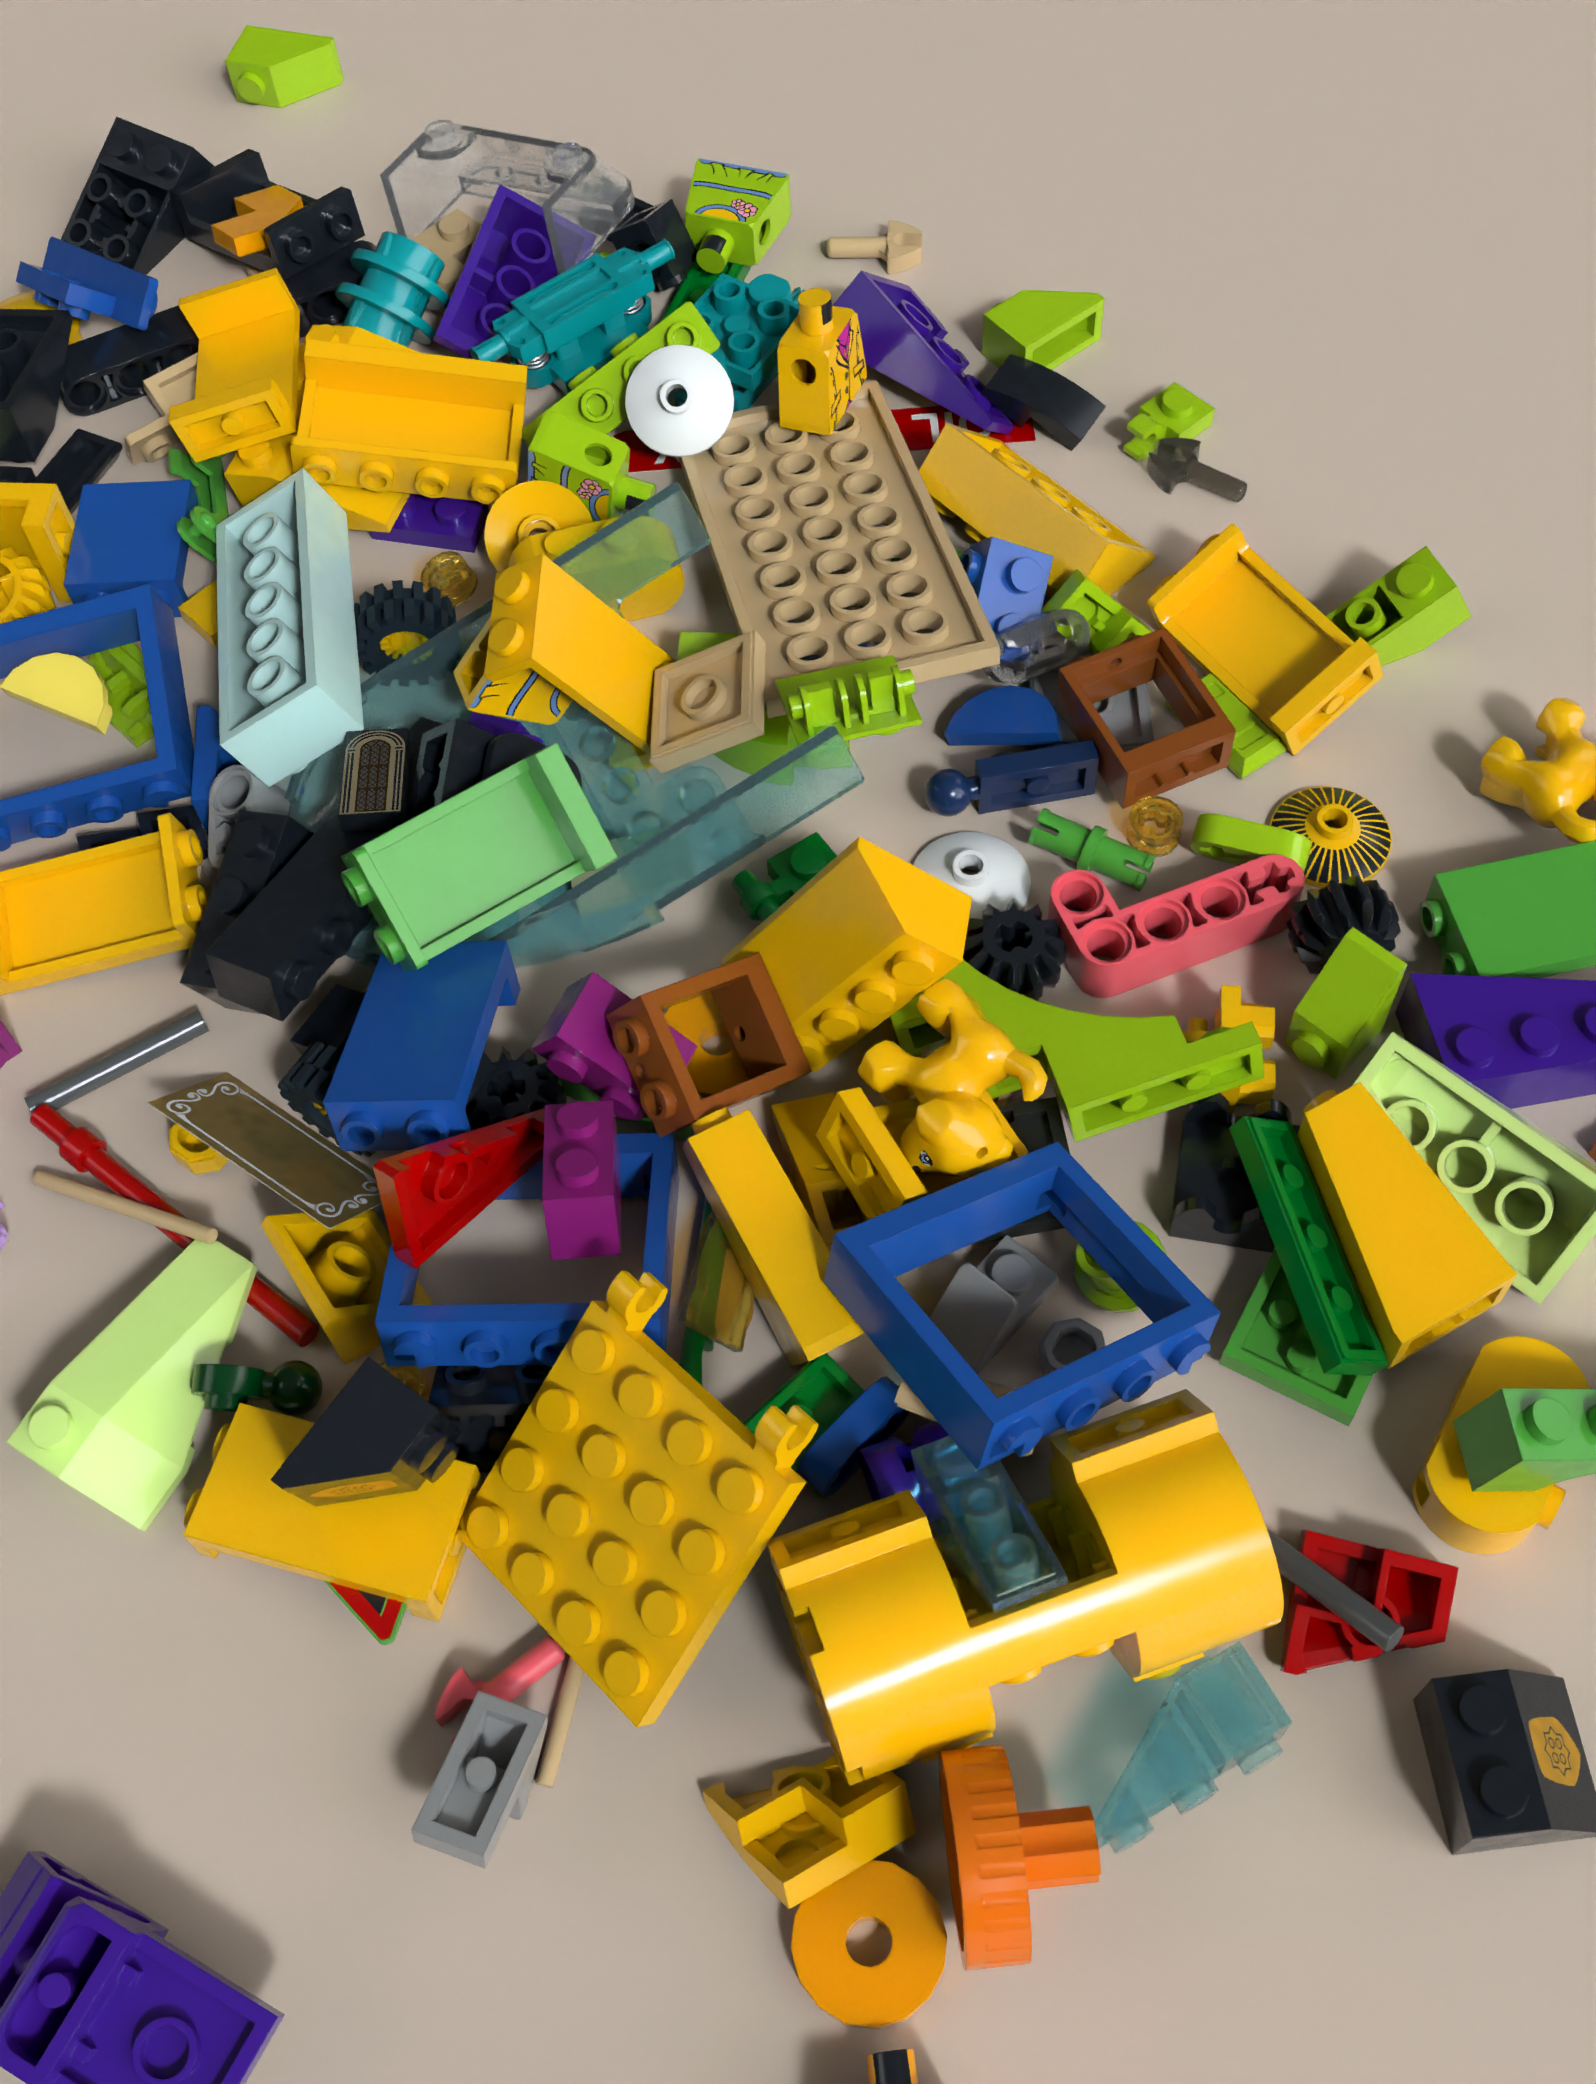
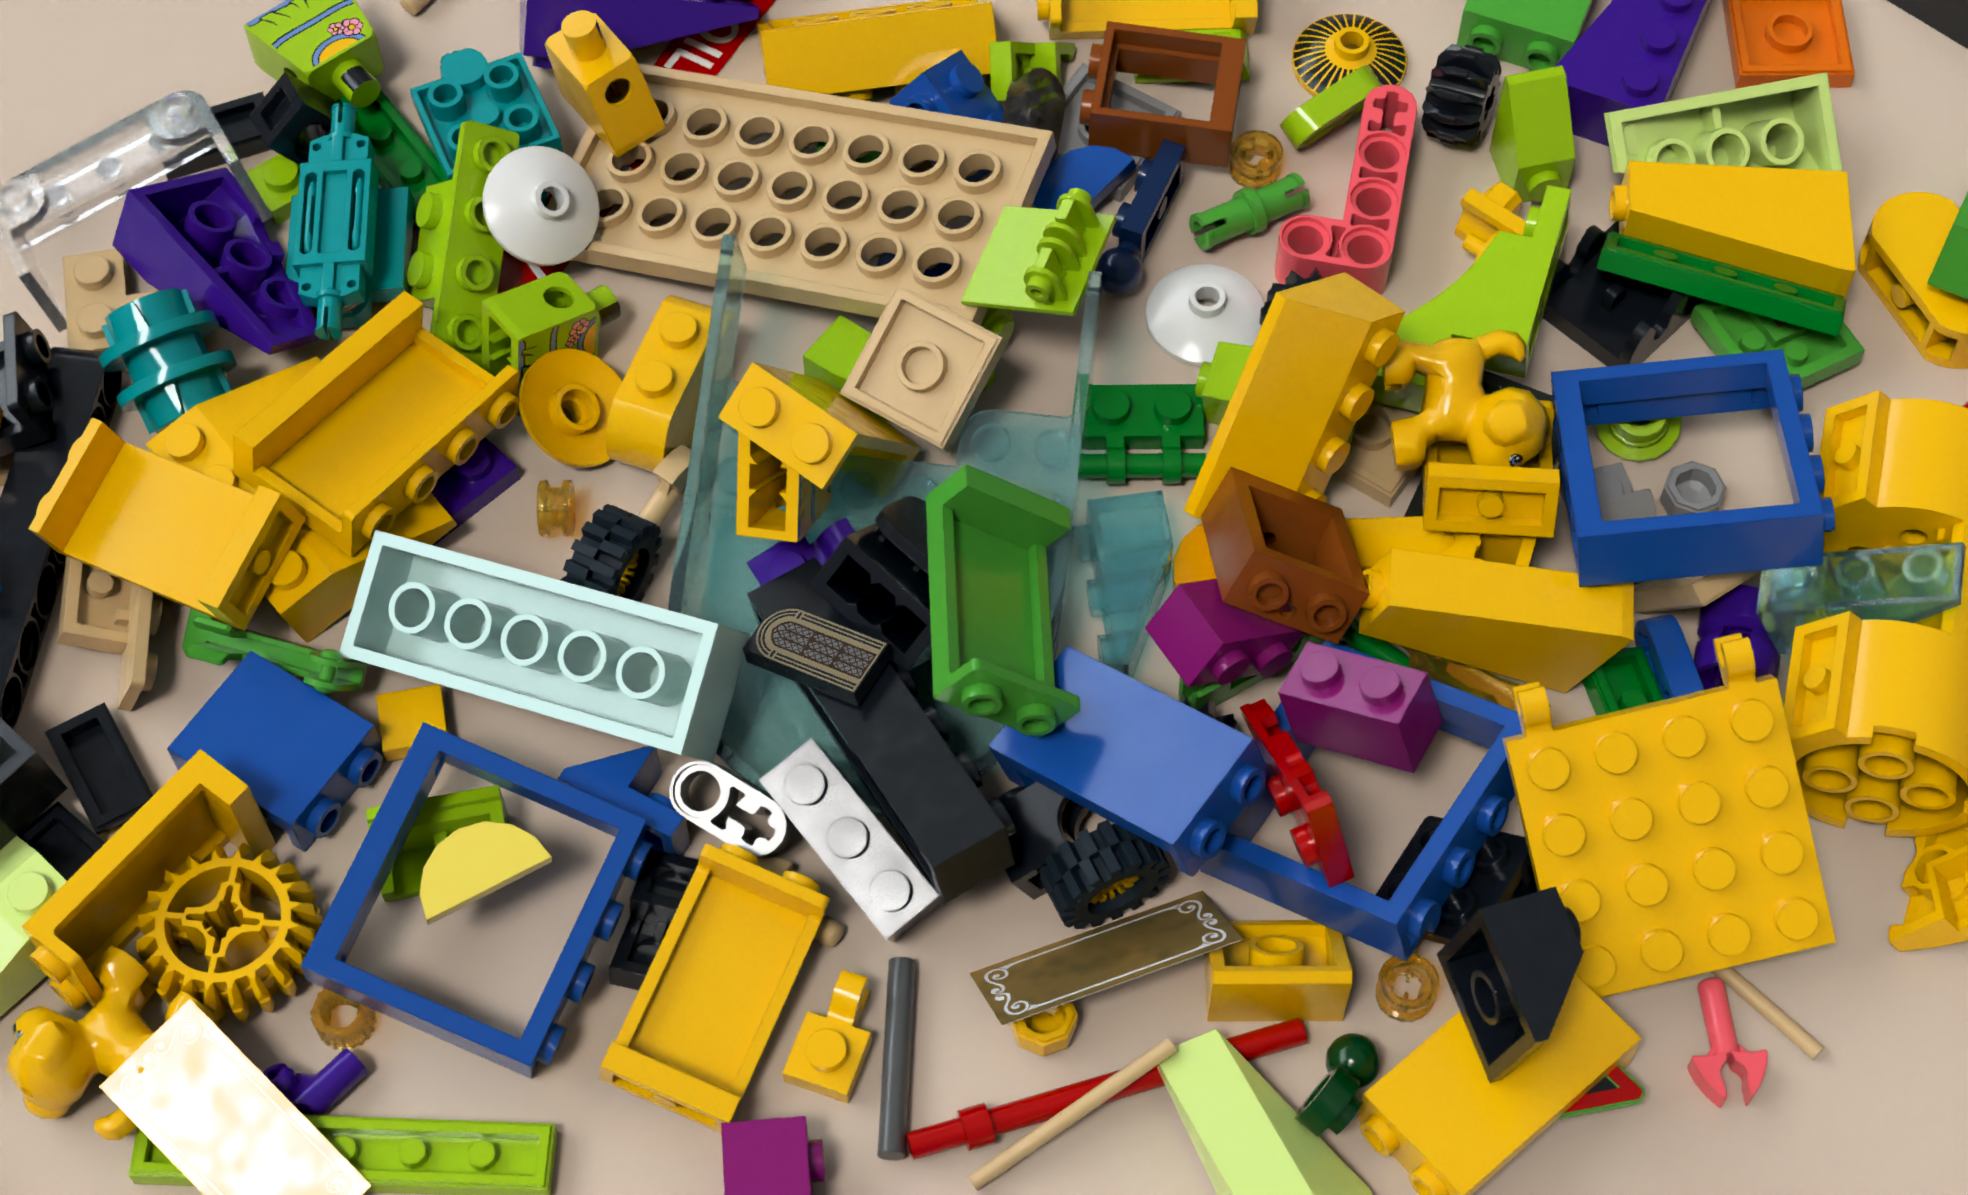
camera: 60 degrees left, 0 degrees up
(100, 1013) = (831, 1048): none -> yellow plate
(482, 1780) = (1812, 1074): light grey slope -> none
(668, 946) = (1131, 565): none -> clear light blue slope

